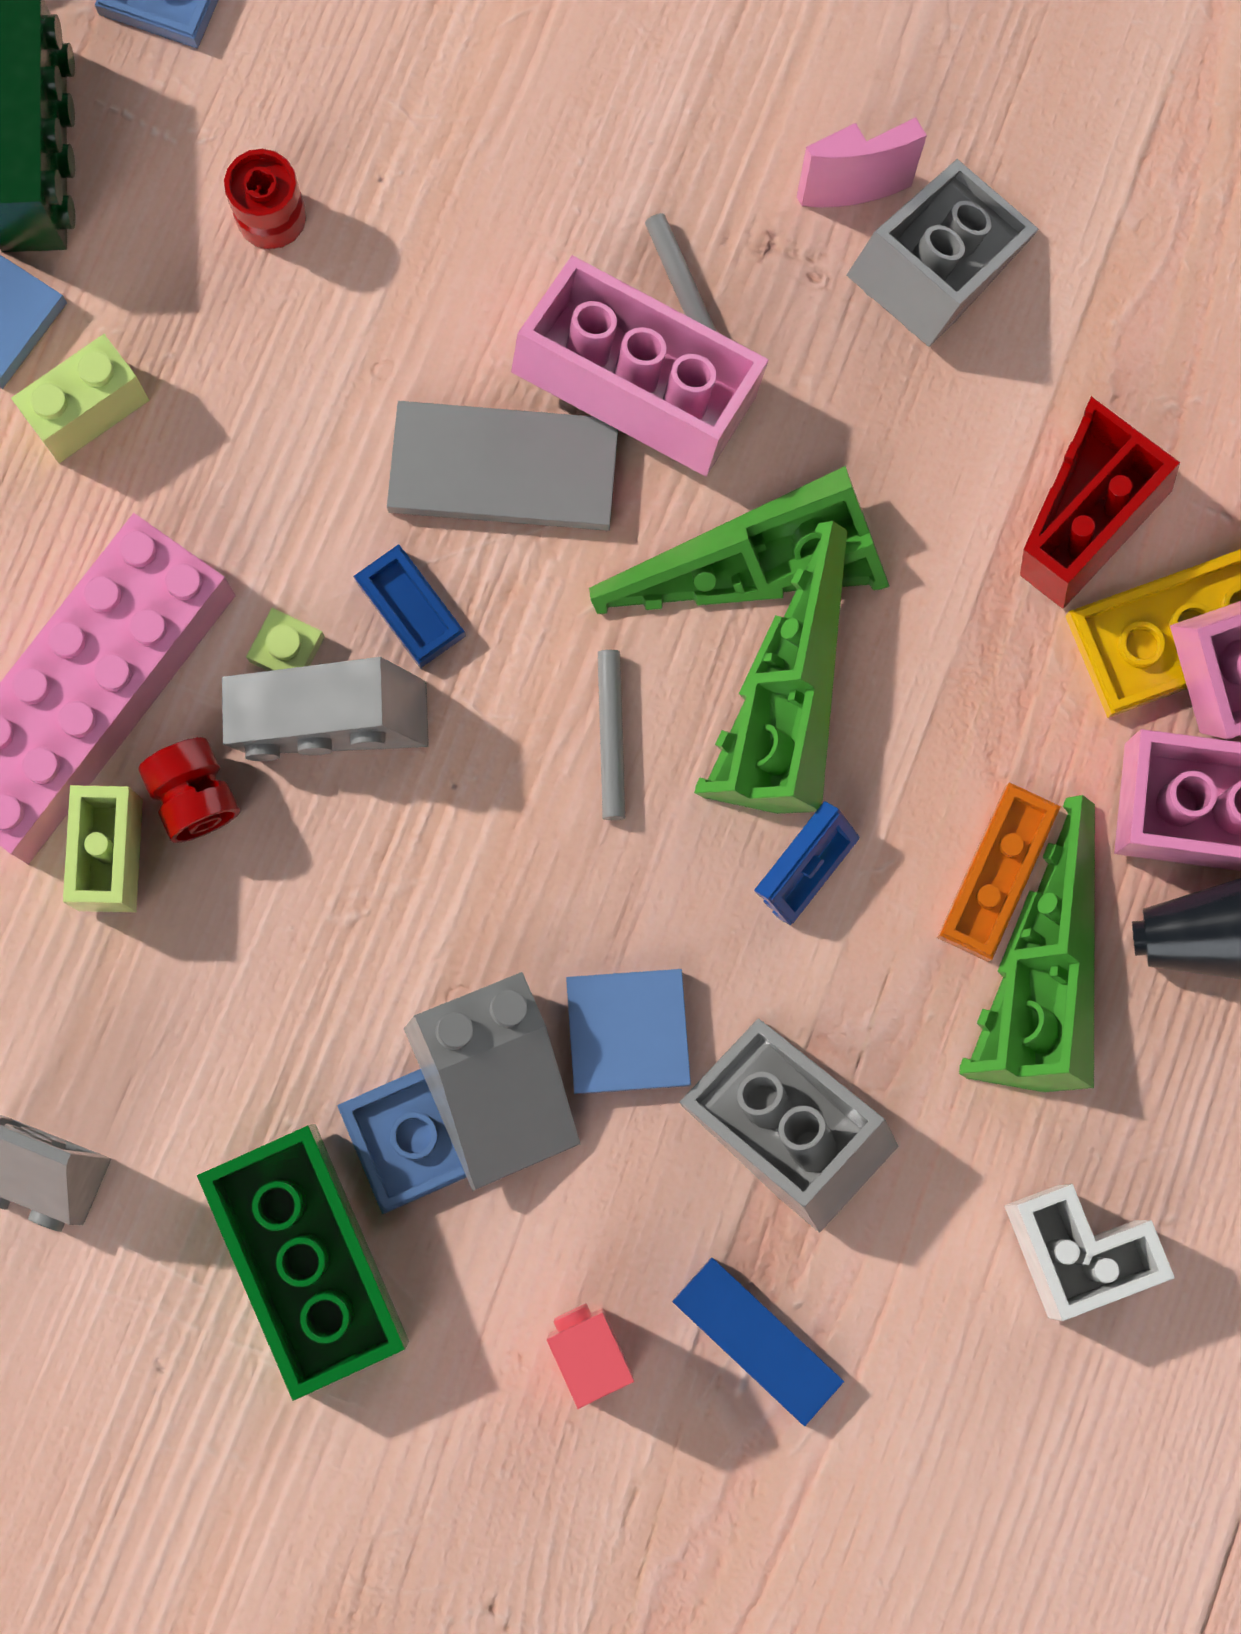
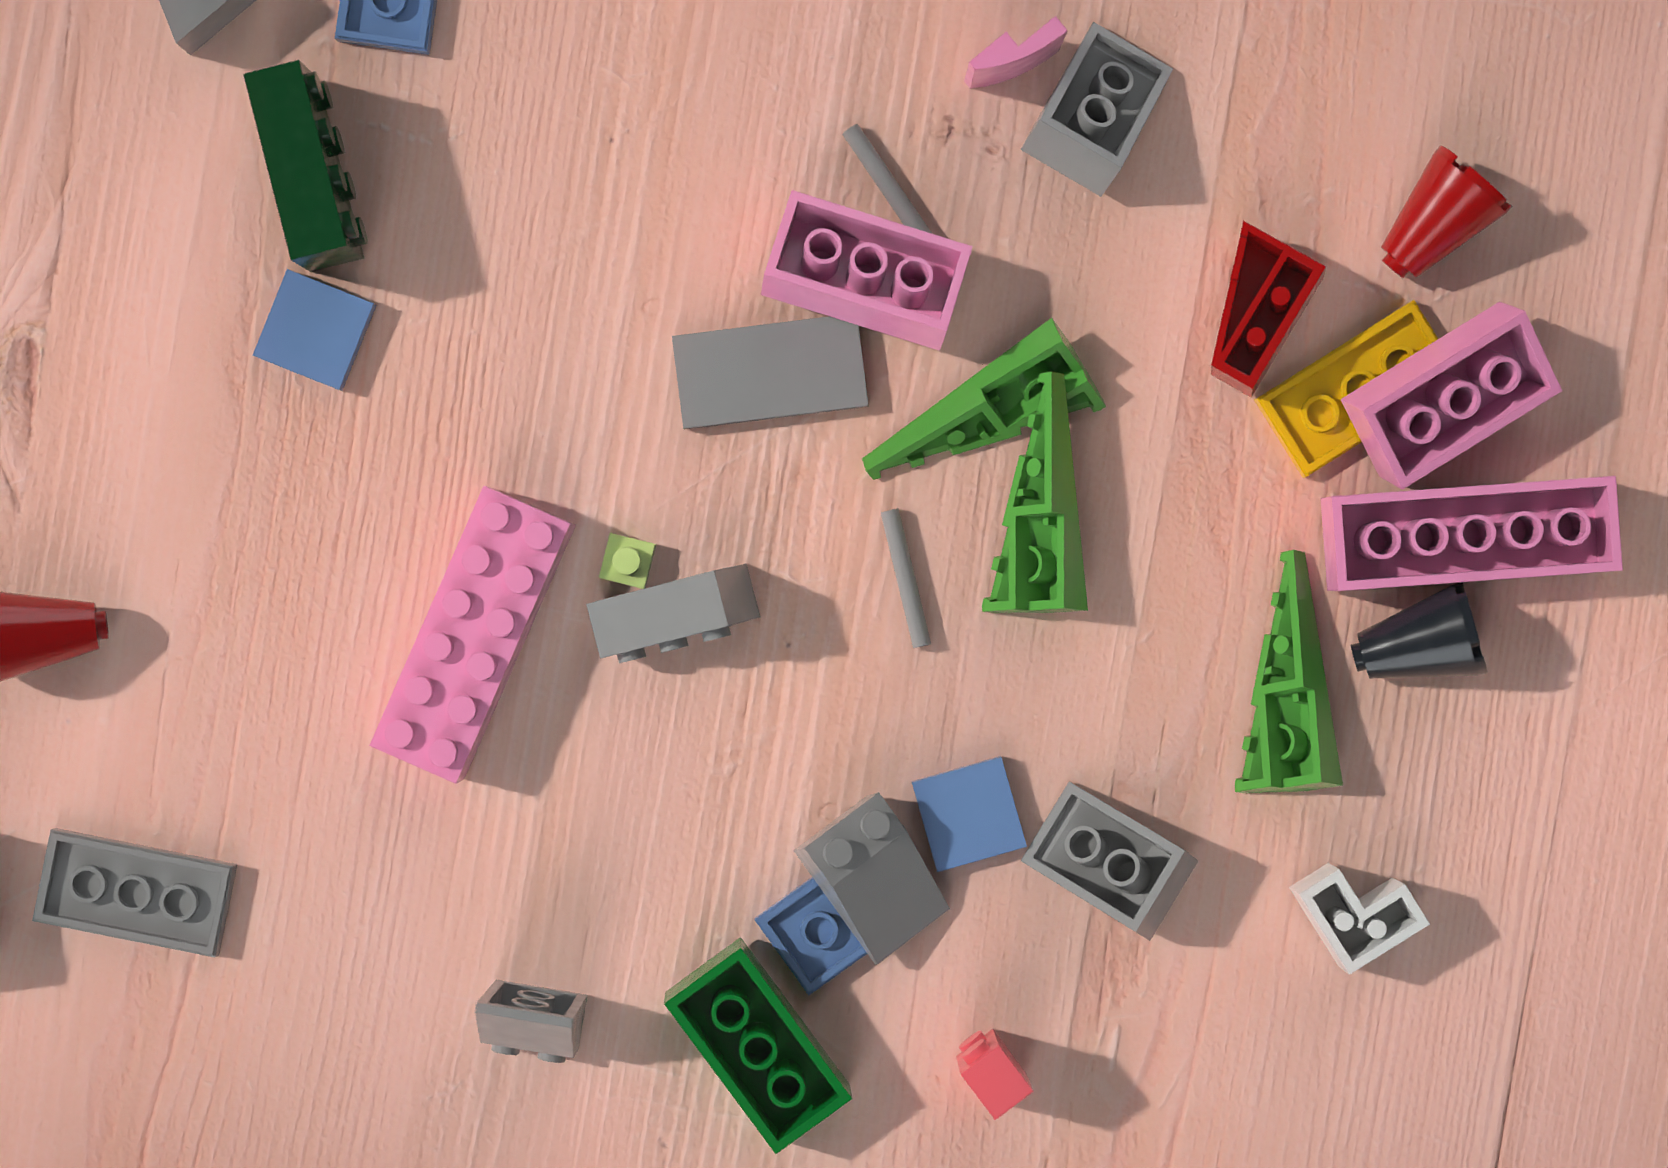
camera: 10 degrees left, 10 degrees up
(81, 398) = (412, 392): yellowish green brick -> none
(103, 849) = (525, 762): yellowish green brick -> none
(187, 786) = (580, 698): red wheel -> none
(265, 198) = (523, 186): red wheel -> none
(409, 606) = (719, 505): blue tile -> none
(758, 1341) = (1117, 1030): blue tile -> none
(807, 863) = (1084, 652): blue tile -> none
(998, 872) = (1237, 624): orange tile -> none

